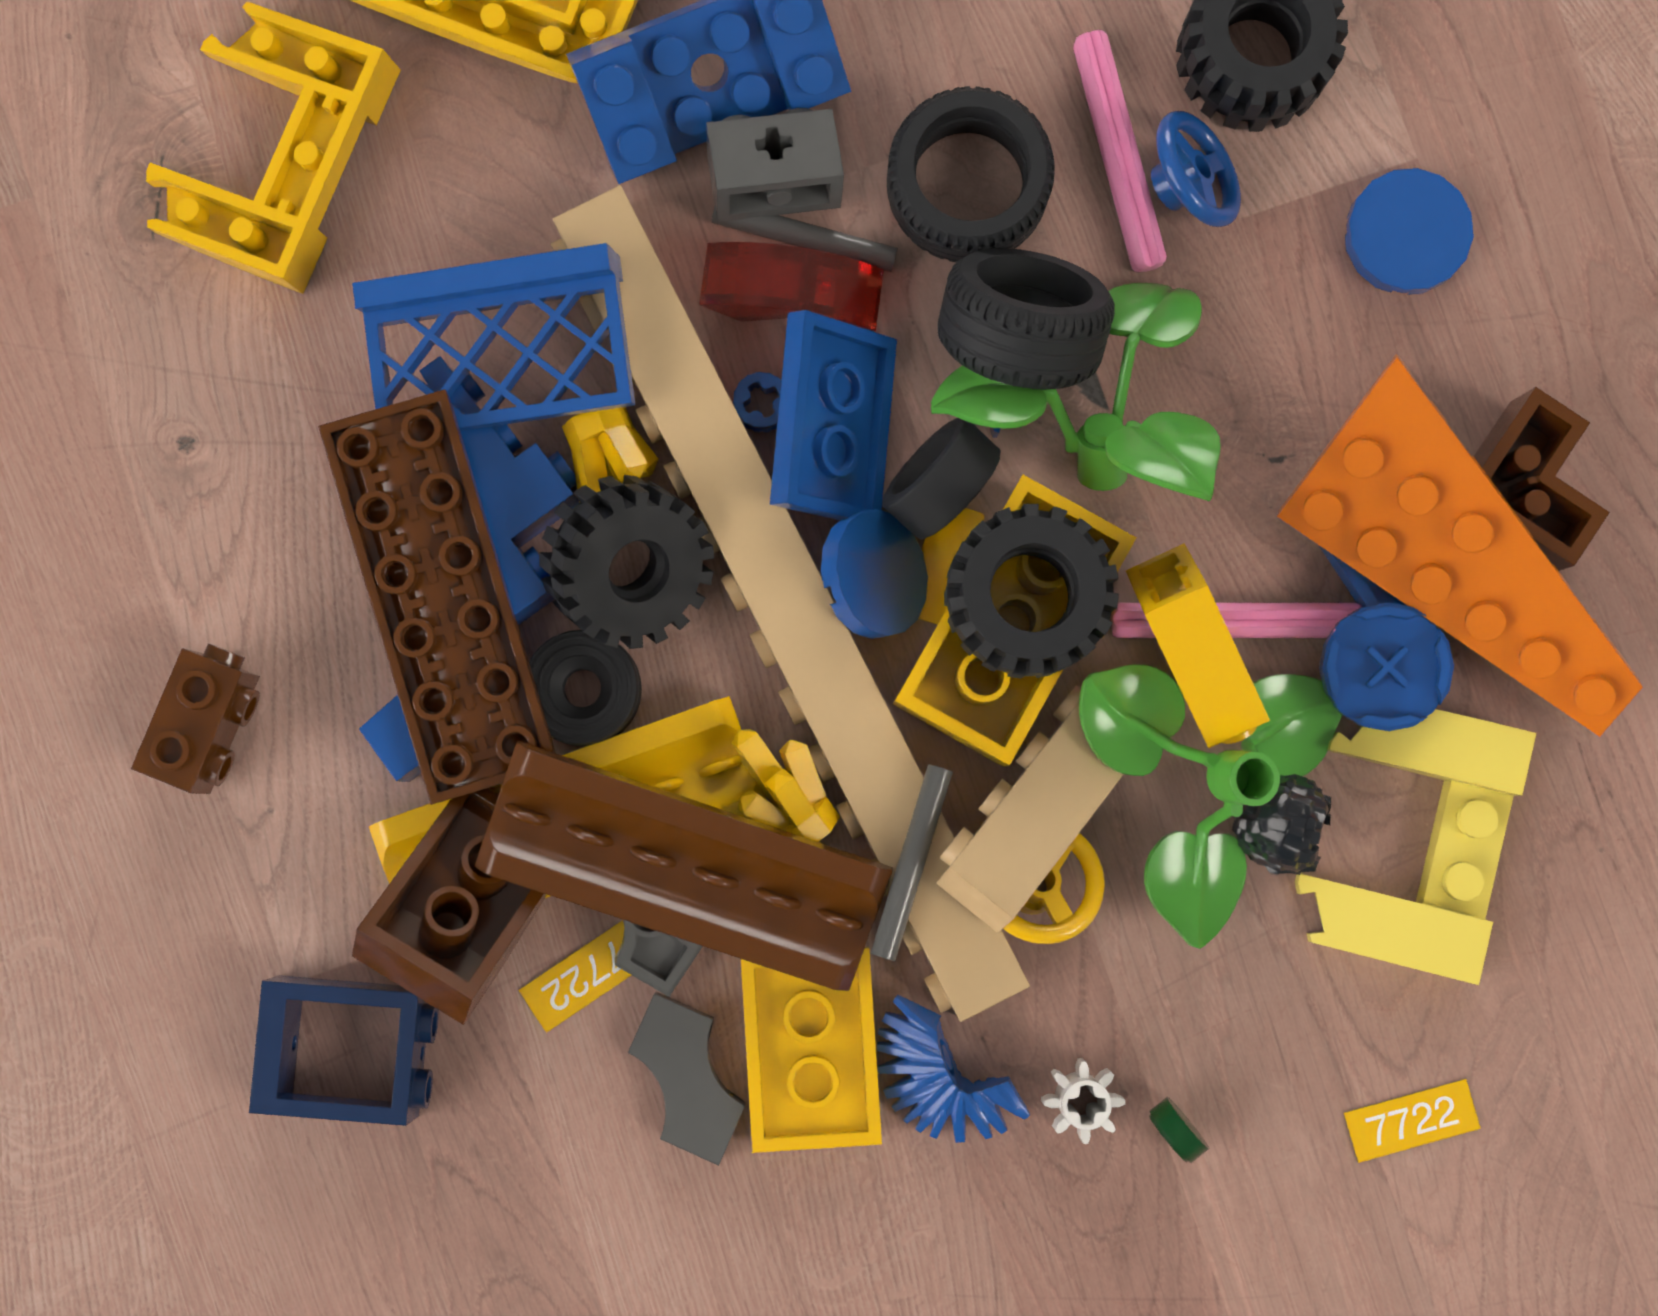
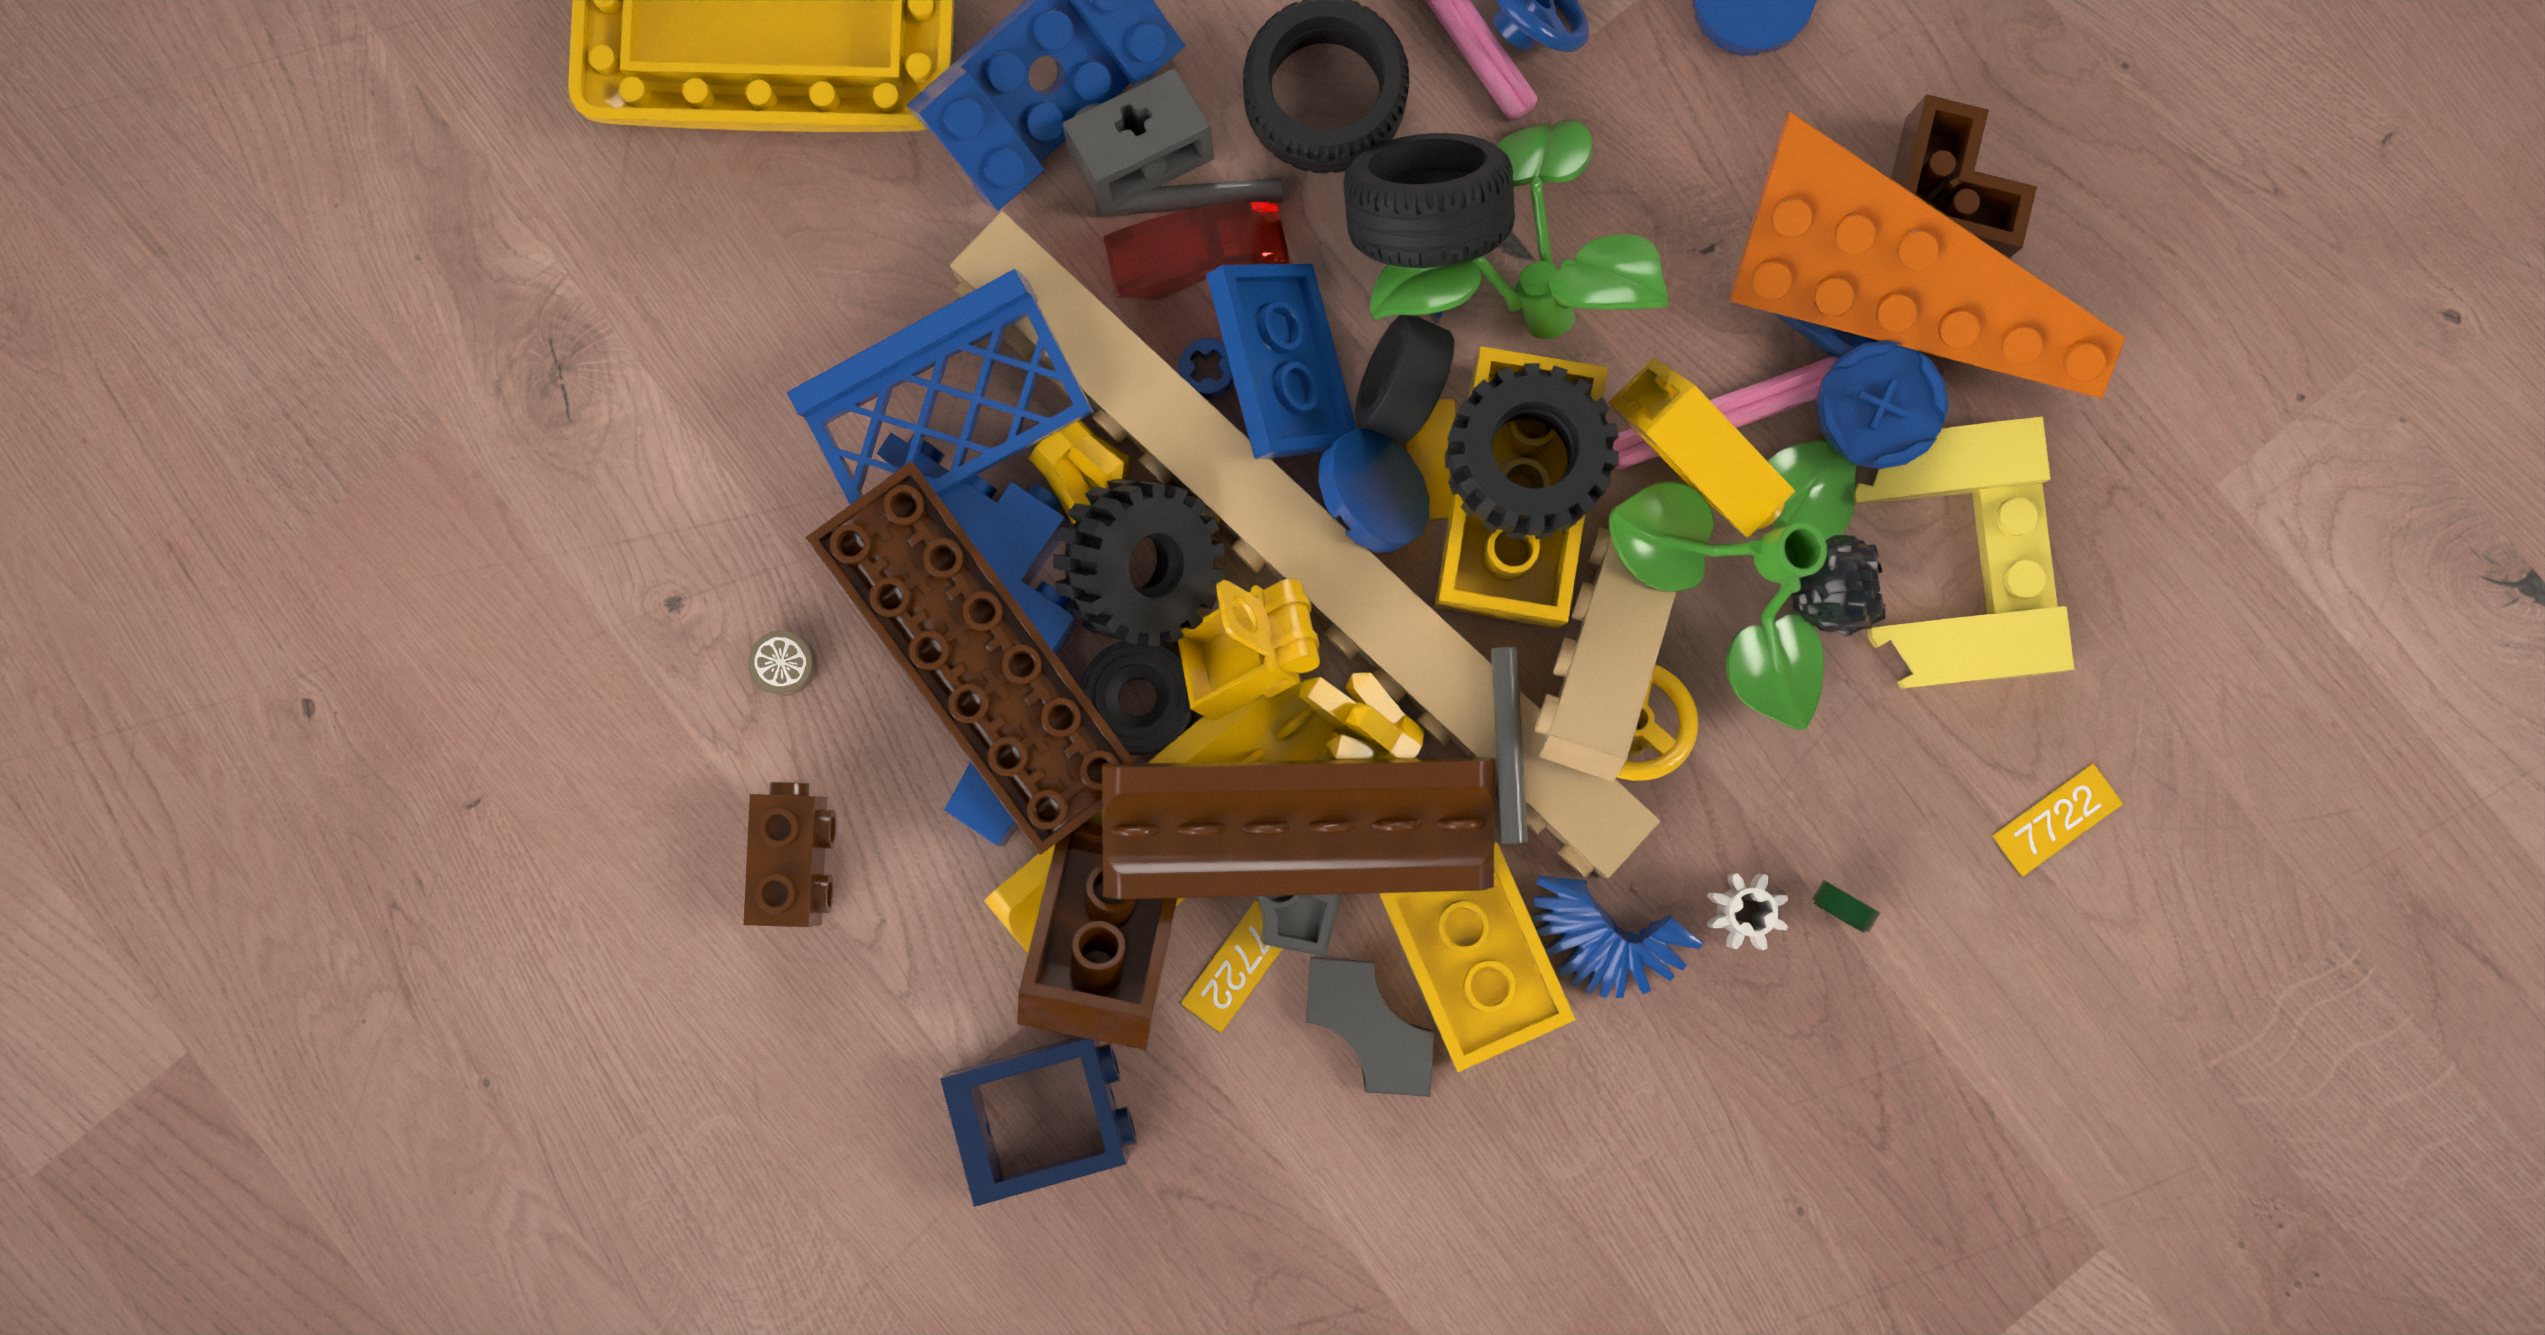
camera: 20 degrees left, 0 degrees up
(264, 535) = (782, 663): none -> dark tan tile
(338, 90) = (700, 215): yellow wedge -> none
(699, 679) = (1248, 647): none -> yellow piece

